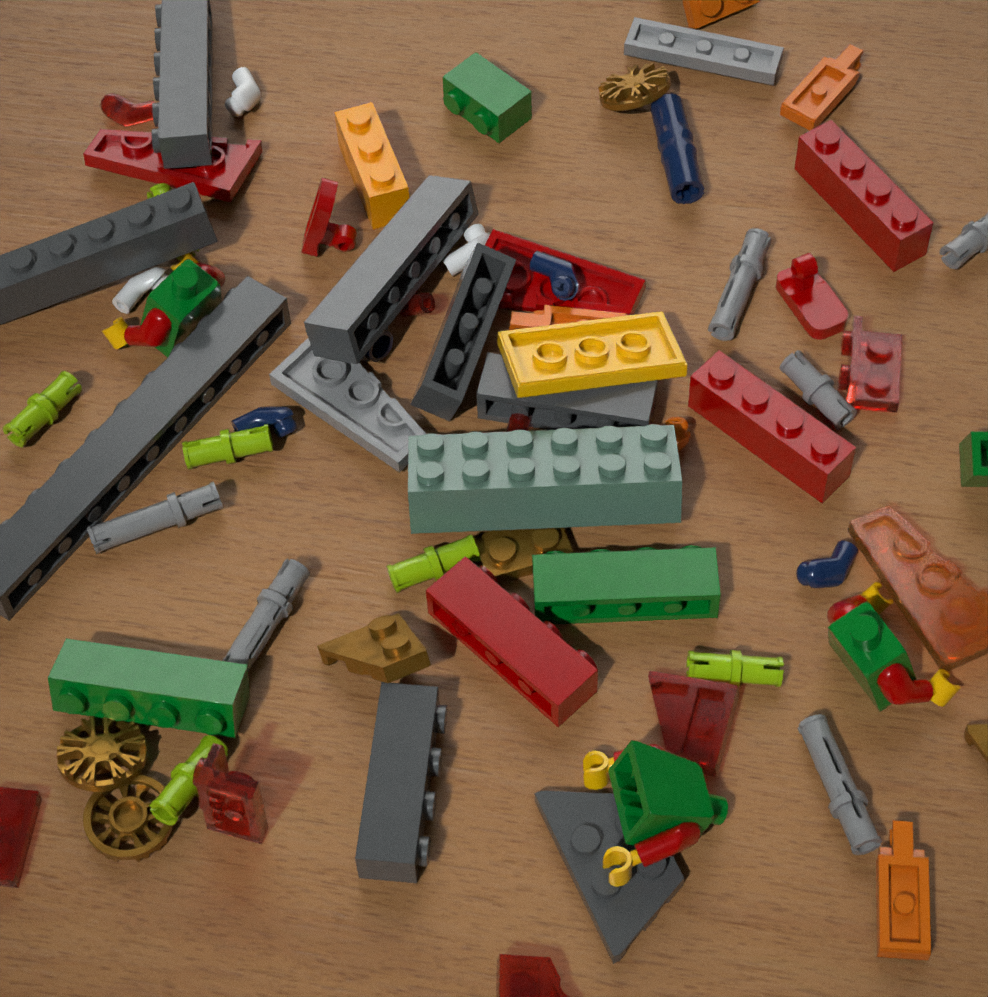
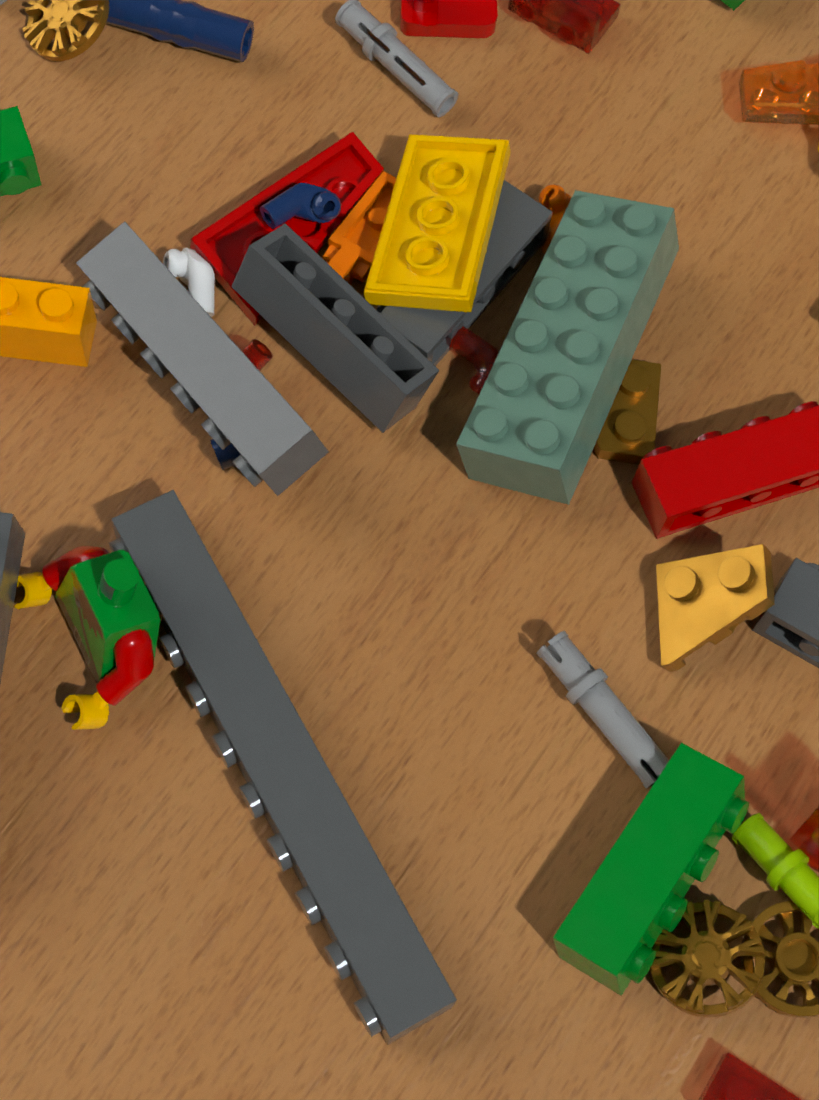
camera: 75 degrees left, 10 degrees up
(42, 409) = (158, 848): lime pin -> none
(137, 287) = (20, 658): white arm -> none
(155, 517) = (398, 789): light grey pin -> none
(227, 446) = (337, 650): lime pin -> none
(279, 417) = (314, 590): dark blue arm -> none
(319, 228) = (68, 401): red piece -> none
(349, 402) = (342, 493): light grey wing -> none
(432, 563) = (610, 501): lime pin -> none
(626, 585) = (728, 336): green brick -> none
(771, 426) = (601, 116): red brick -> none
(818, 389) = (568, 59): light grey pin -> none
(828, 571) = (783, 152): dark blue arm -> none

